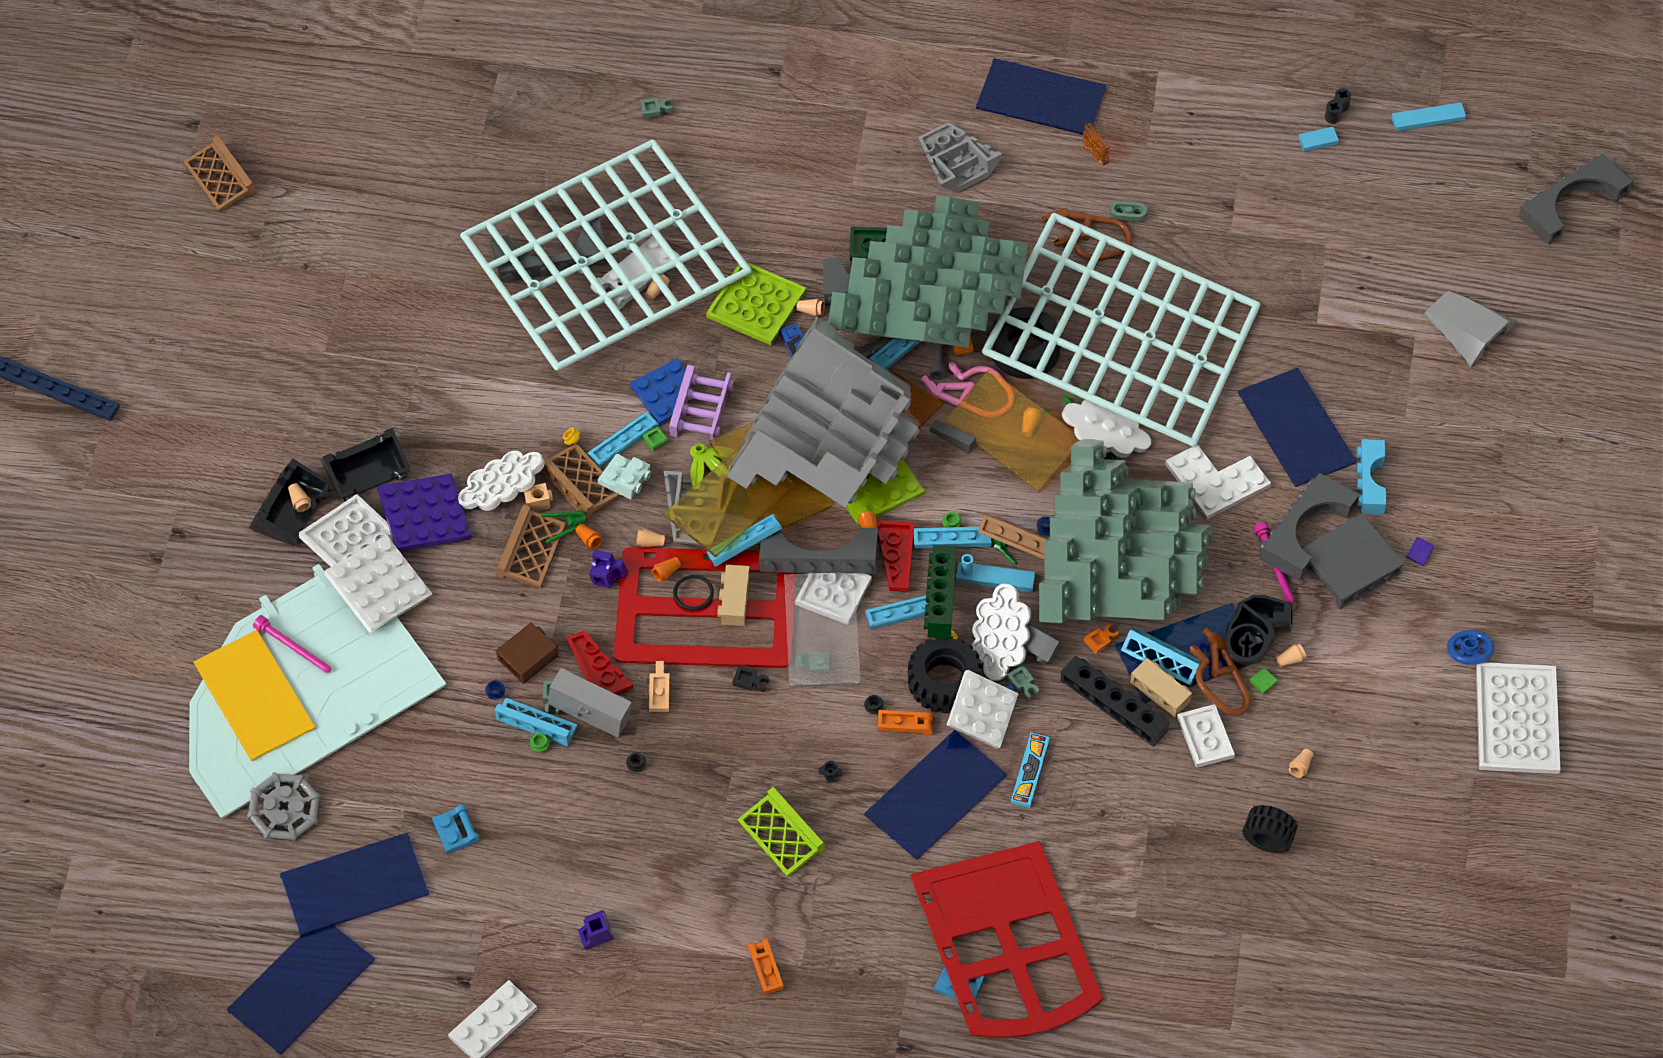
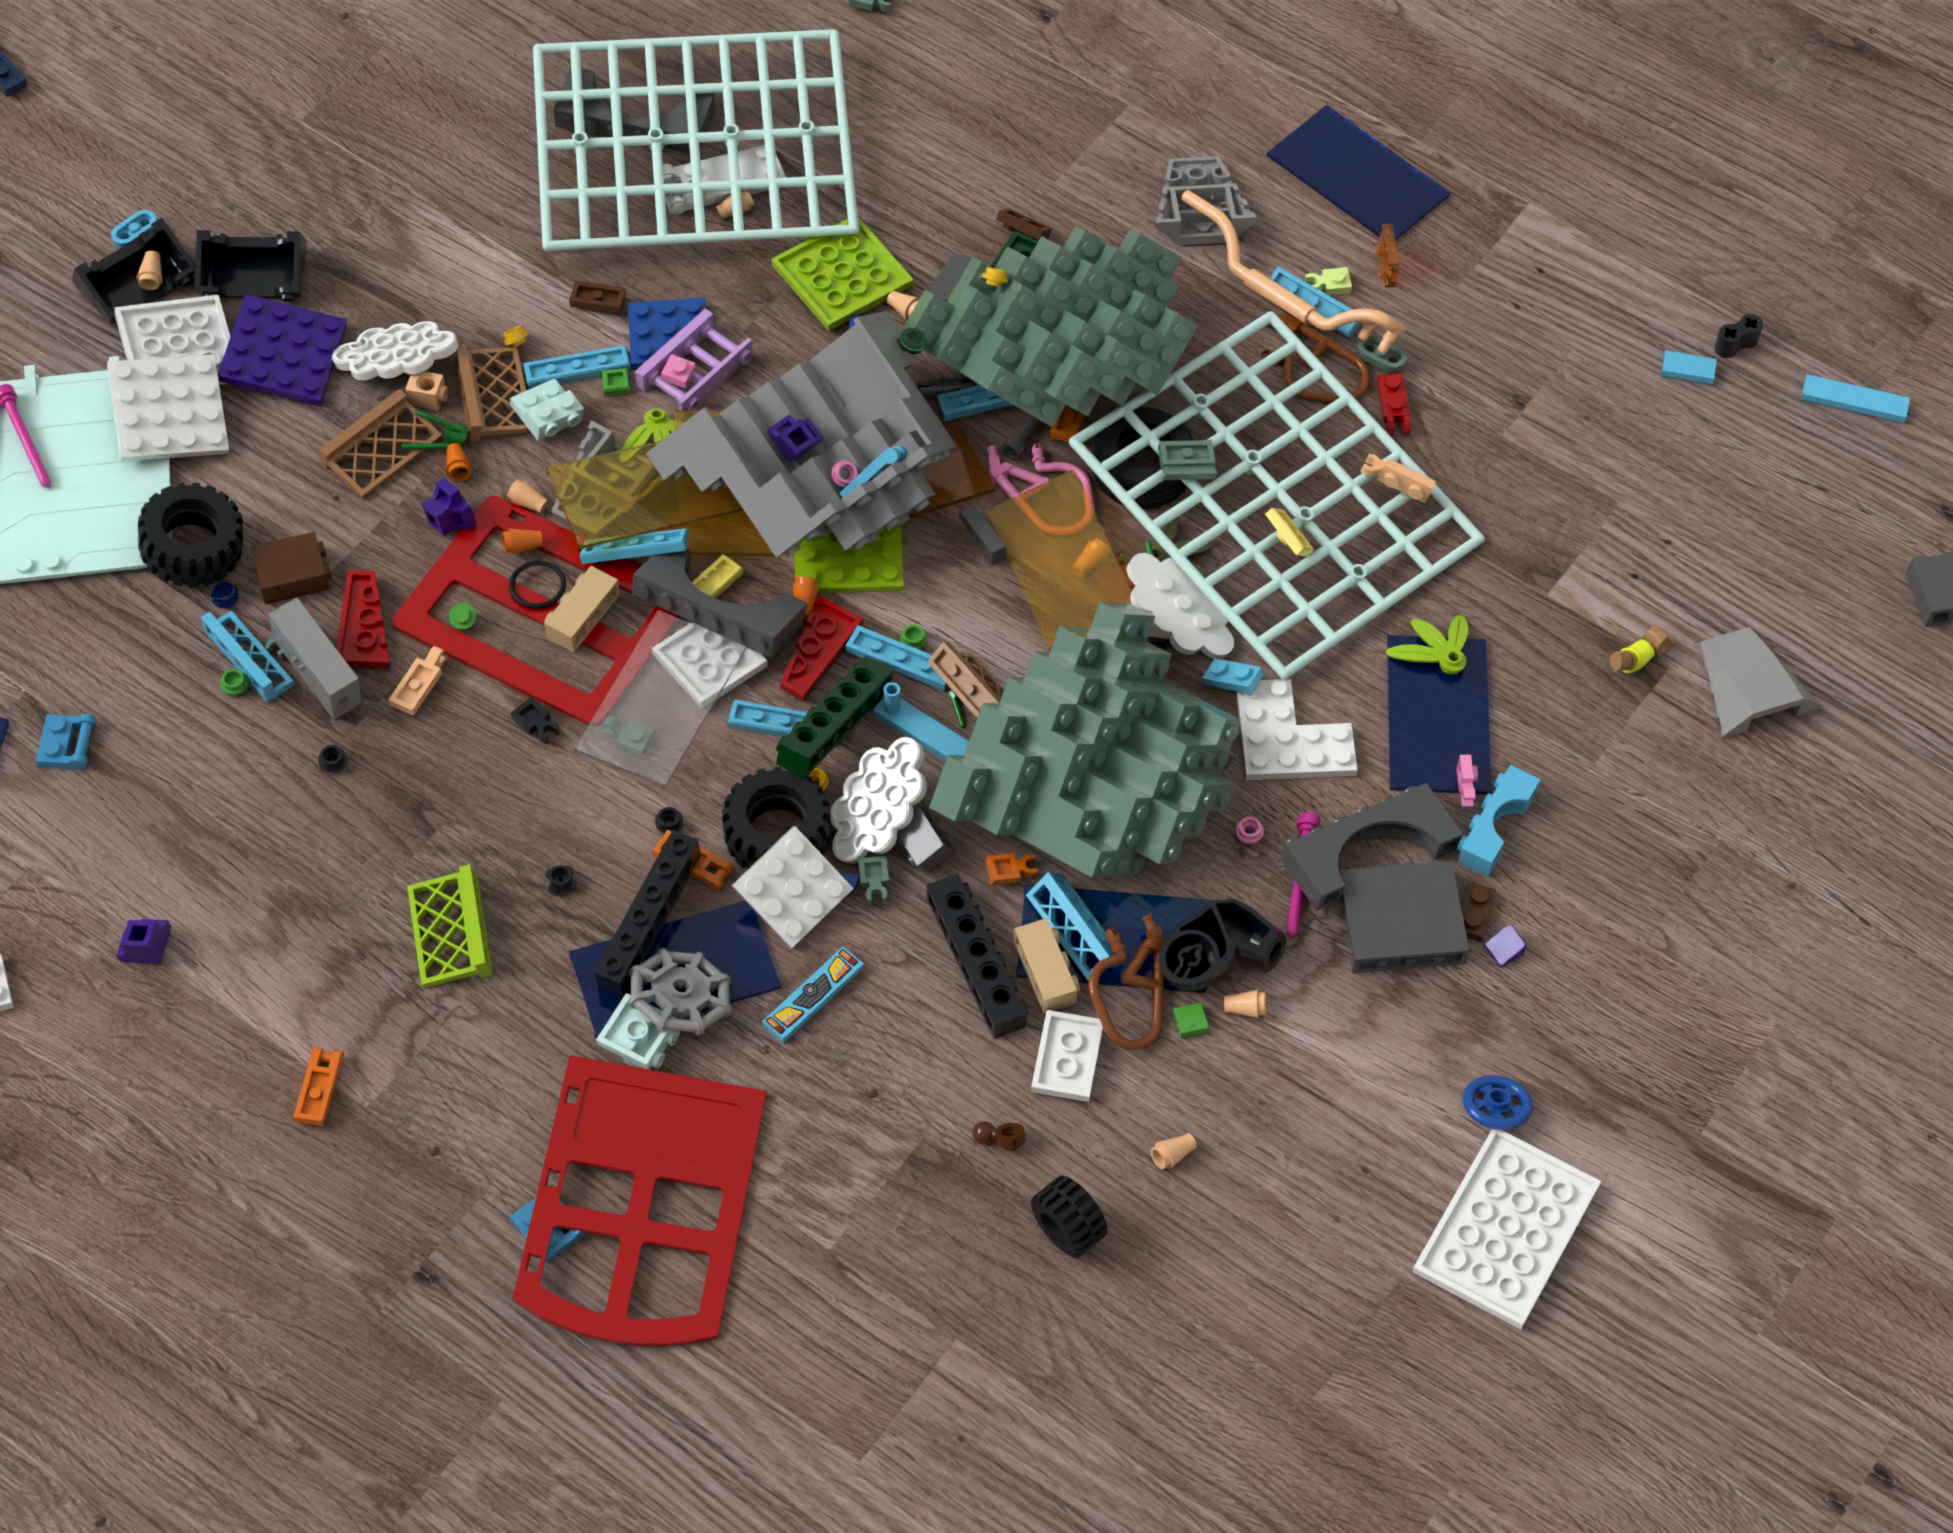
camera: 25 degrees right, 0 degrees up
(266, 476) = (131, 228): none -> medium azure plate
(454, 639) = (190, 563): none -> black tyre
(608, 387) = (597, 297): none -> reddish brown plate
(660, 634) = (463, 616): none -> bright green plate
(696, 413) = (678, 371): none -> bright pink plate
(806, 535) = (718, 576): none -> light yellow plate
(808, 424) = (795, 437): none -> dark purple brick
(847, 220) = (1016, 221): none -> reddish brown plate
(847, 329) = (912, 341): none -> clear green tile
(857, 431) = (849, 467): none -> bright pink plate
(875, 425) = (881, 463): none -> medium azure plate
(881, 264) = (995, 276): none -> yellow plate
(903, 766) = (648, 912): none -> black brick
(943, 841) = (636, 1037): none -> light aqua plate
(958, 792) = (680, 1003): none -> light grey plate
(1045, 199) = (1284, 298): none -> light nougat piece
(1062, 332) = (1187, 460): none -> sand green plate
(1066, 194) = (1324, 303): none -> medium azure tile
(1068, 175) = (1333, 281): none -> yellowish green plate
(1148, 352) = (1288, 532): none -> light yellow plate
(1154, 239) = (1394, 402): none -> red hinge
(1163, 458) = (1232, 676): none -> medium azure plate
(1193, 287) = (1399, 477): none -> light nougat plate
(1200, 800) = (1007, 1136): none -> reddish brown plate
(1229, 545) = (1253, 825): none -> bright pink plate
(1276, 386) = (1441, 650): none -> lime plant
(1339, 458) = (1466, 776): none -> bright pink plate
(1390, 533) = (1476, 910): none -> reddish brown plate
(1395, 334) = (1636, 656): none -> medium nougat piece

